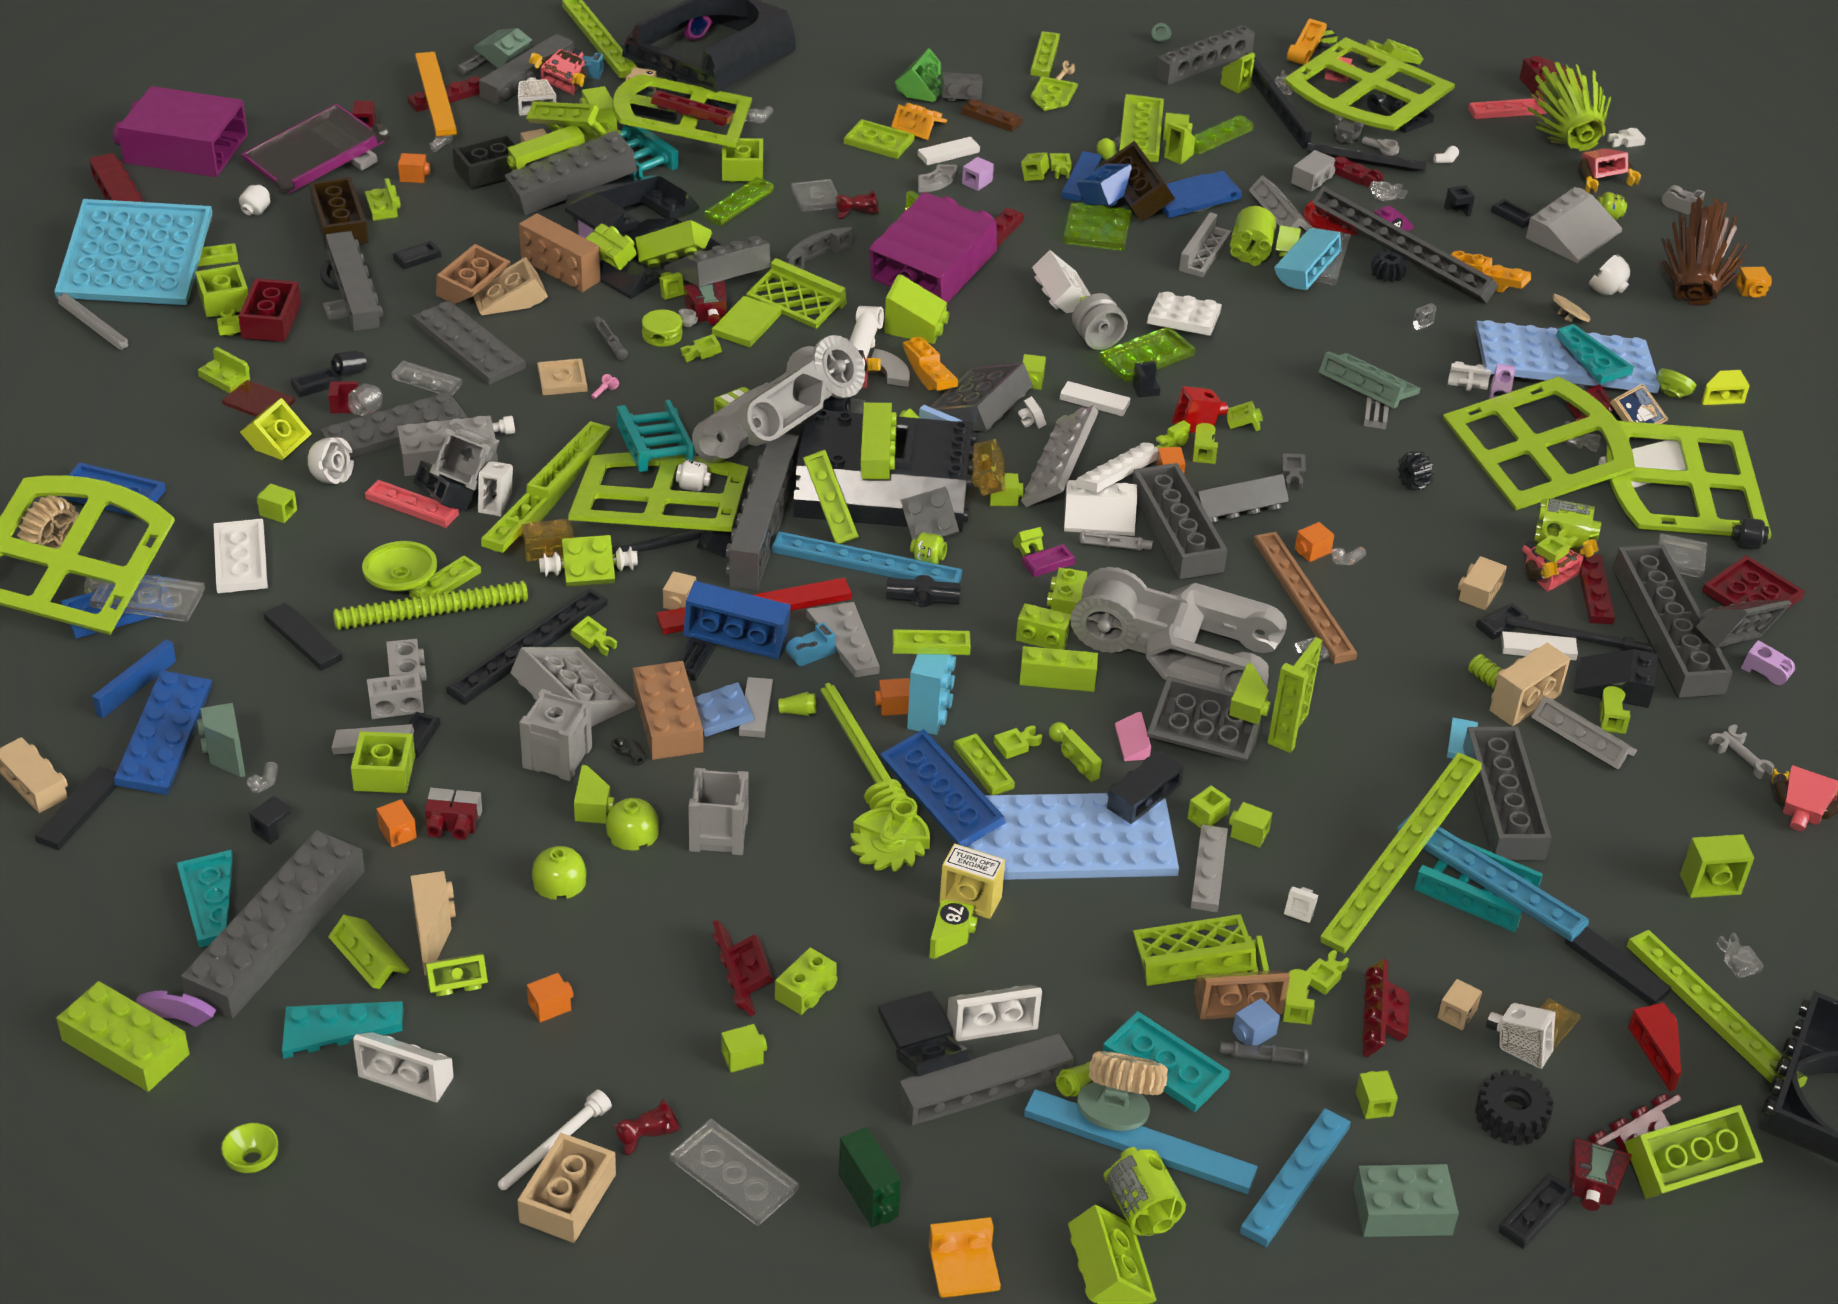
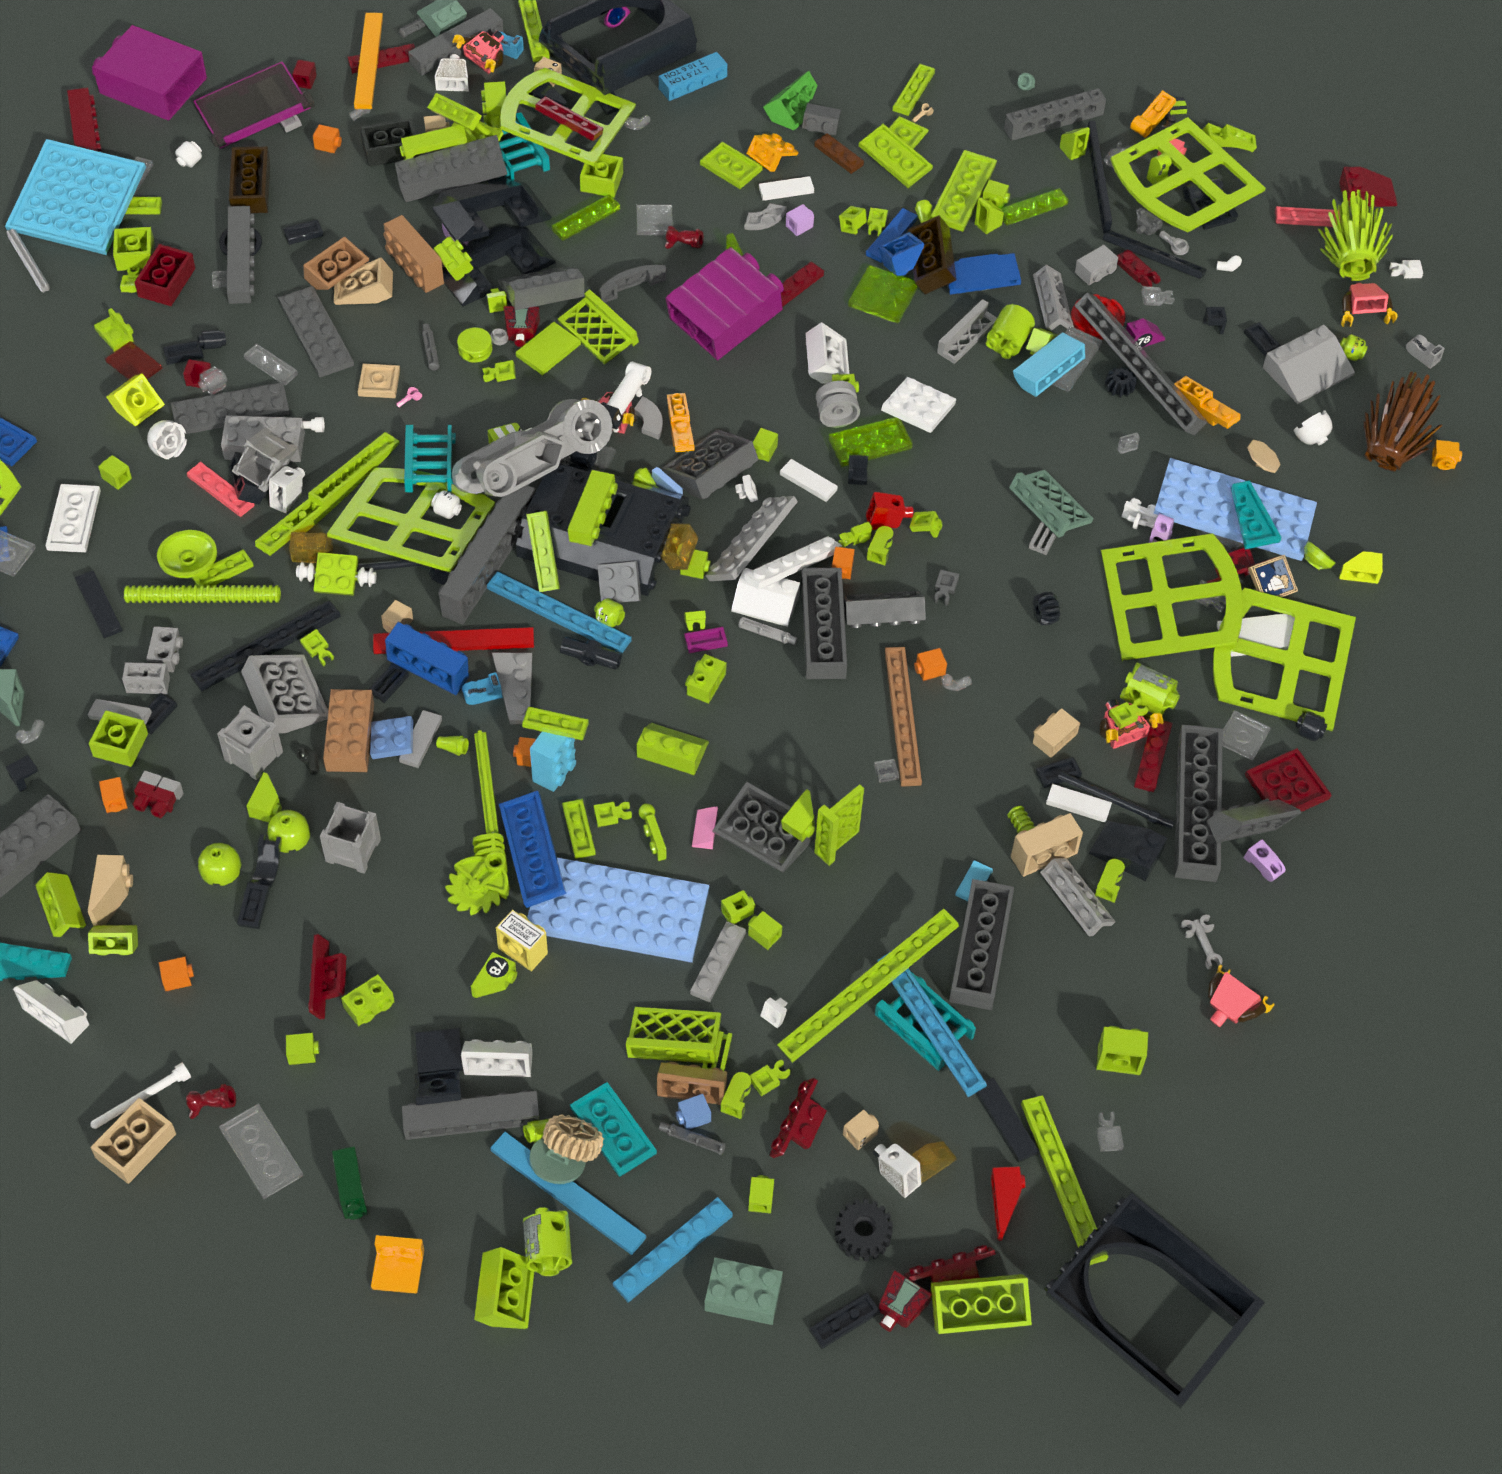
camera: 15 degrees right, 15 degrees up
(383, 202) = (291, 171): lime bracket -> none
(619, 883) = (262, 881): none -> black piece
(672, 243) = (507, 262): lime slope -> none
(804, 68) = (692, 76): none -> dark azure brick
(914, 311) = (686, 365): lime slope -> none
(1042, 626) = (672, 708): lime brick -> none
(1054, 108) = (895, 155): none -> lime tile
(1125, 614) = (768, 729): light grey arm -> none
(1144, 787) = (689, 881): black brick -> none
(1337, 81) = (1159, 168): none -> lime leg

